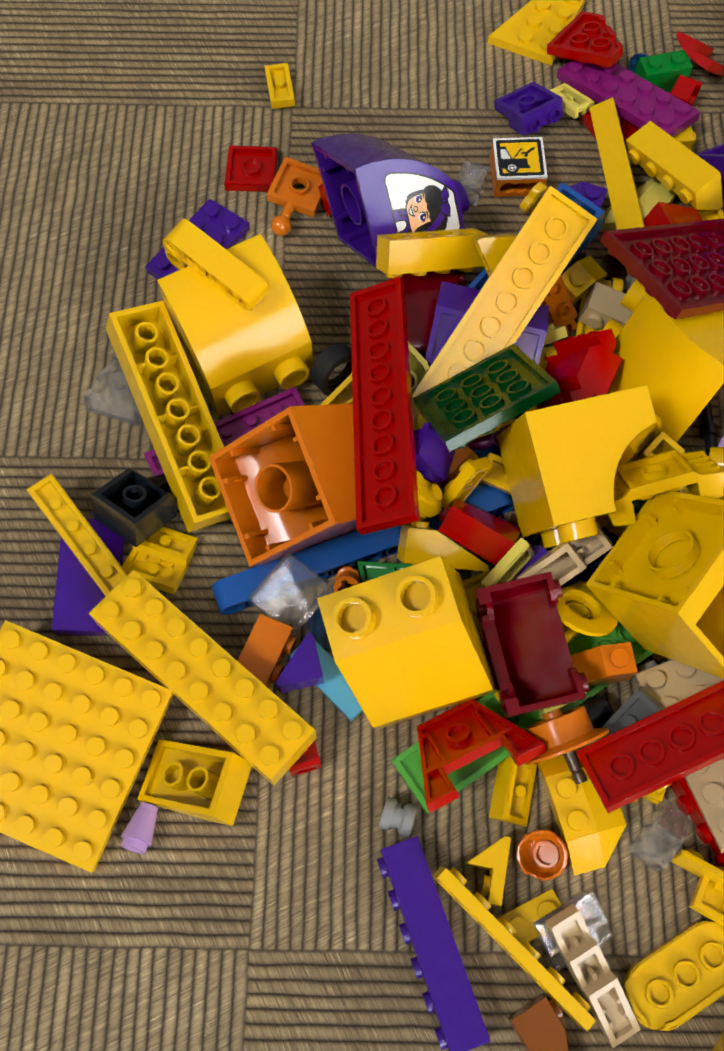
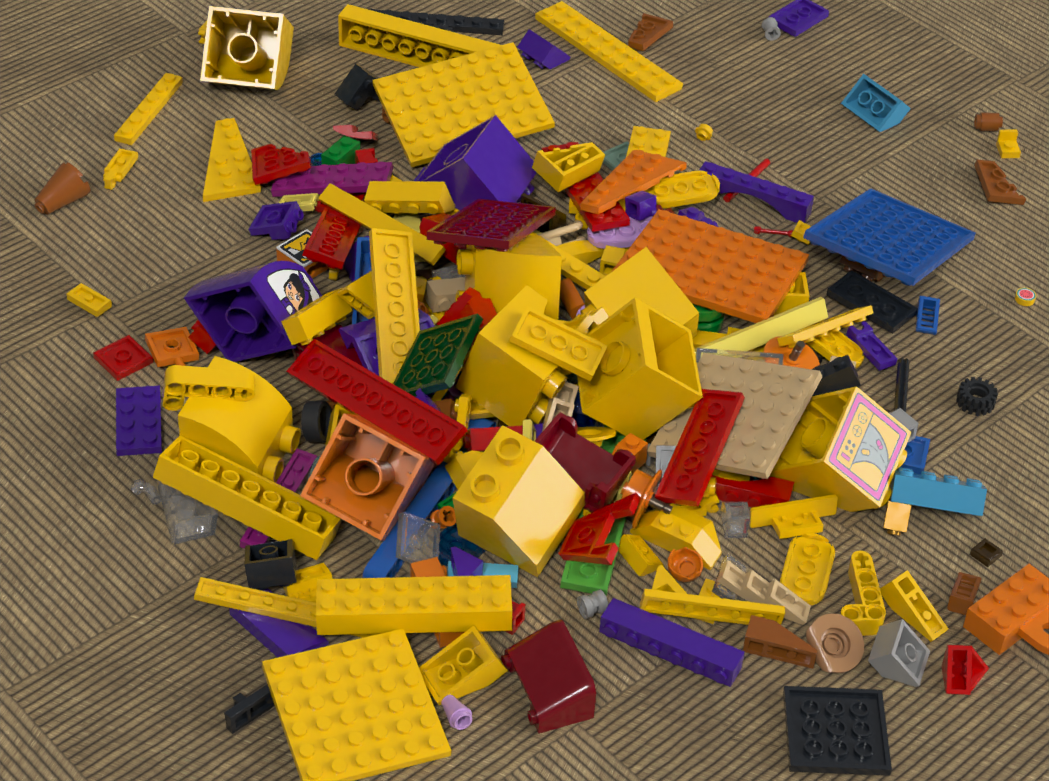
camera: 45 degrees left, 25 degrees down
(258, 876) = (552, 677): none -> dark red windscreen
(548, 163) = (331, 239): none -> red plate
(612, 492) = (558, 343): none -> yellow plate

